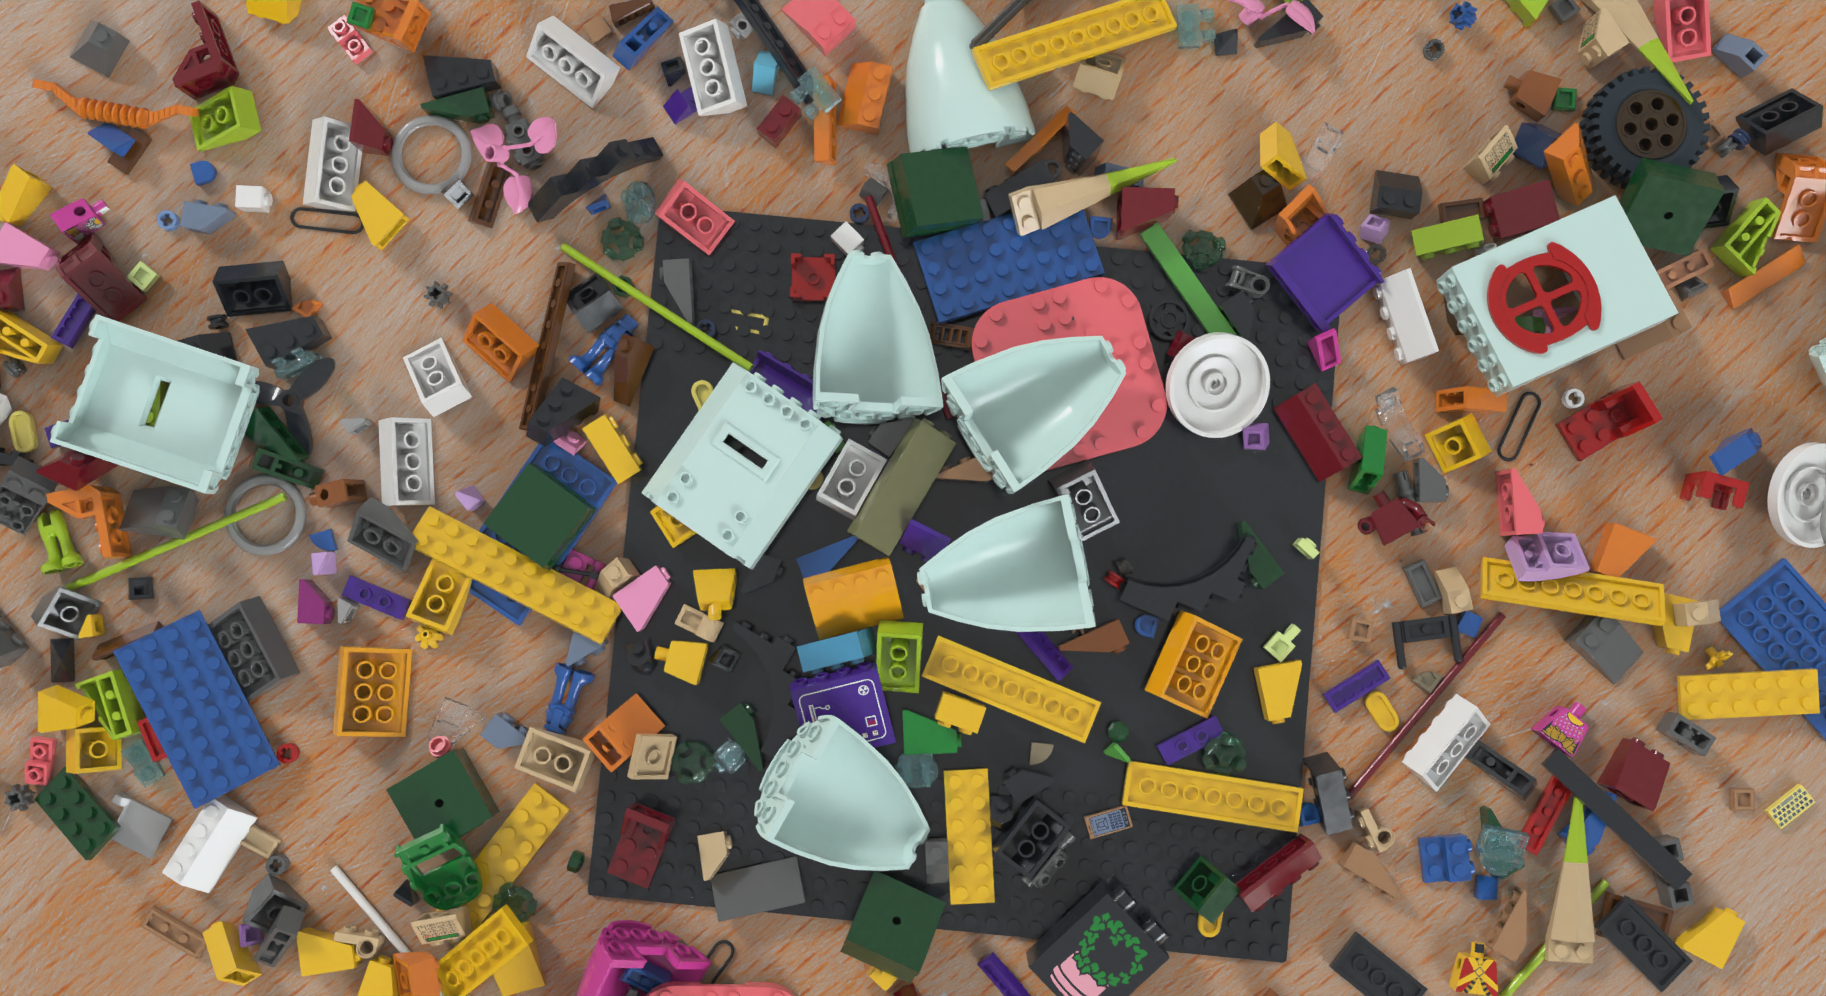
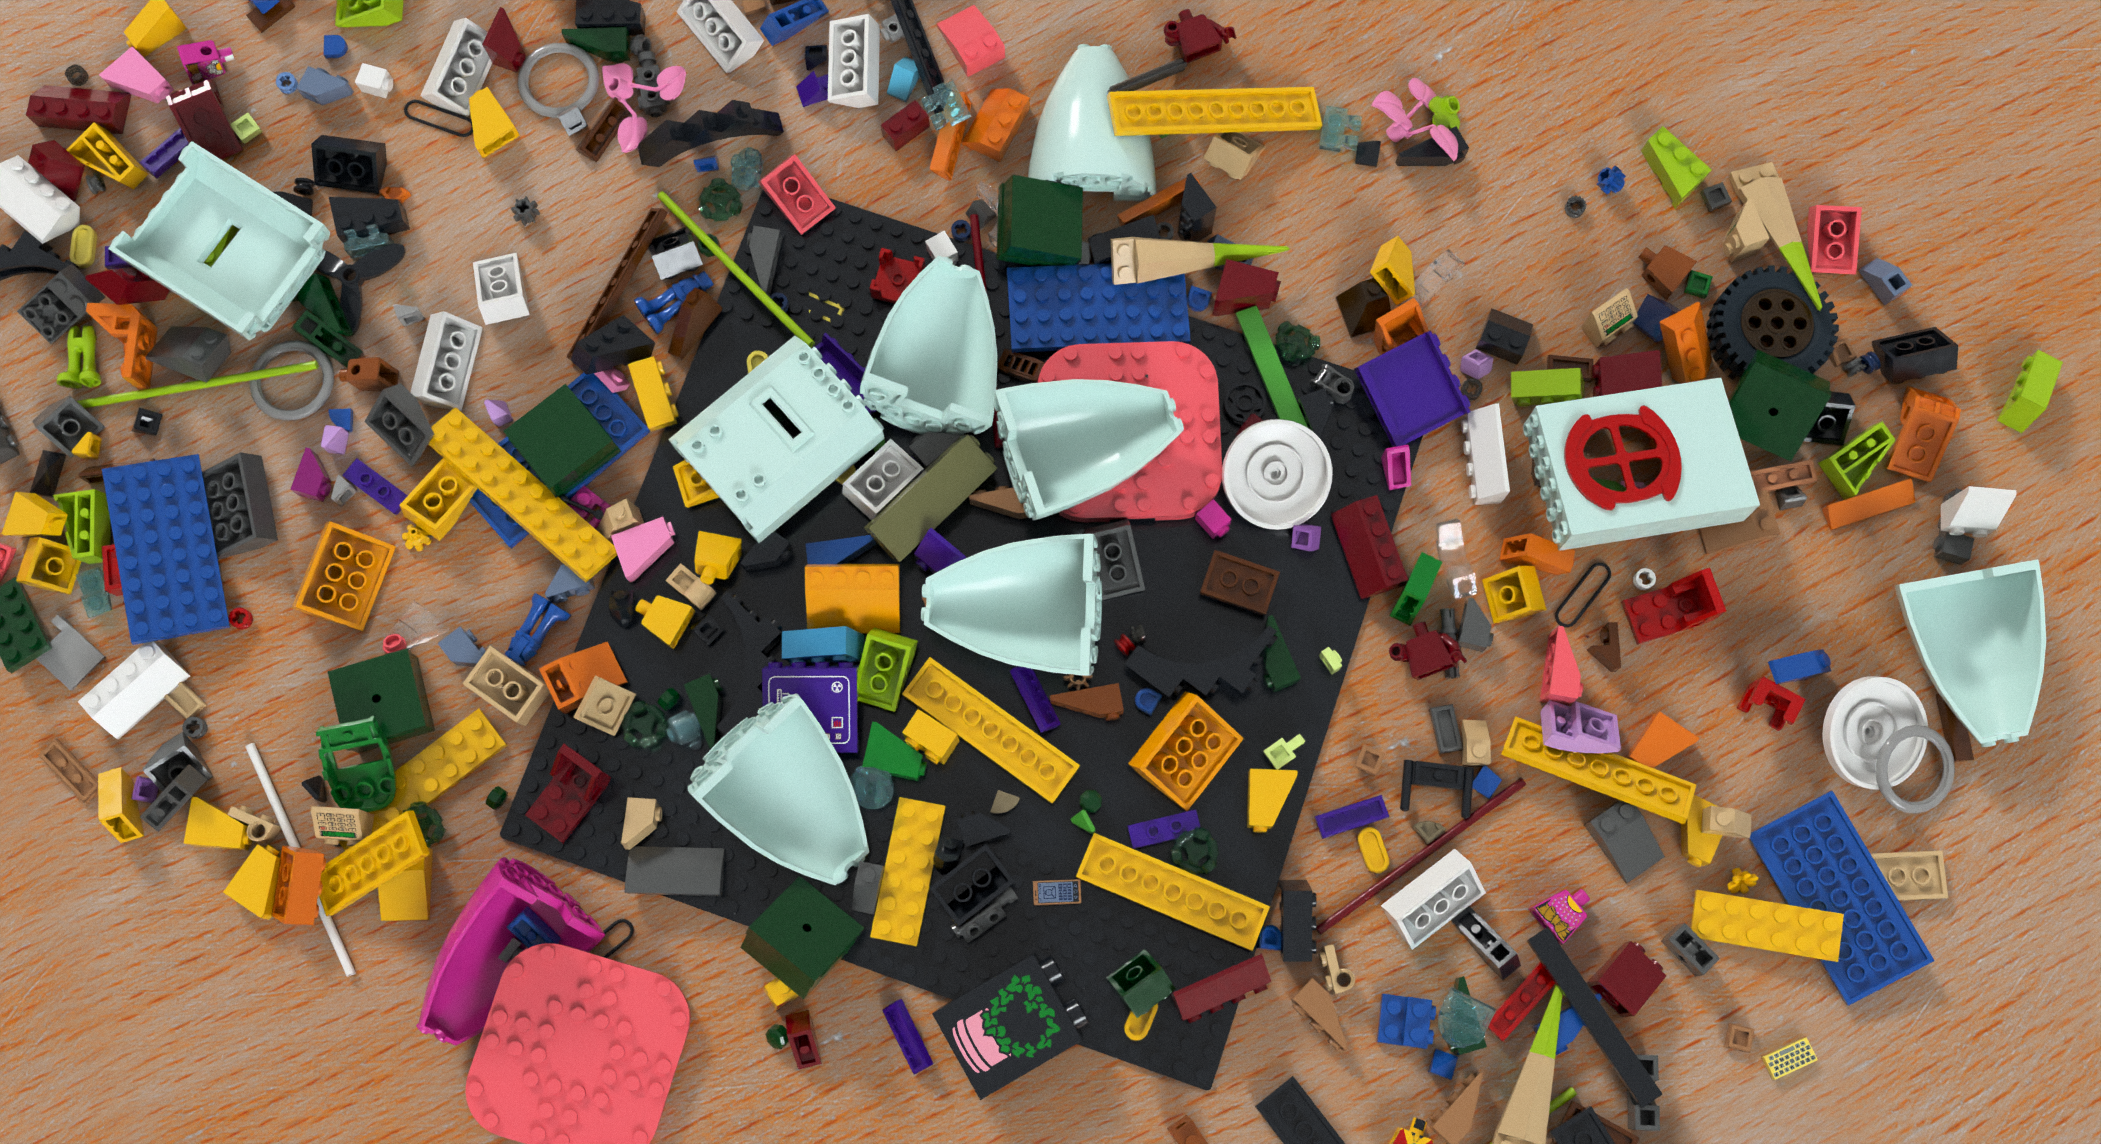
camera: 15 degrees right, 10 degrees down
(499, 342) = (572, 269): orange slope -> none
(709, 733) = (668, 699): none -> dark green tile
(1167, 441) = (1213, 519): none -> dark pink brick
(1205, 494) = (1239, 582): none -> reddish brown plate
(1557, 476) = (1608, 653): none -> reddish brown slope

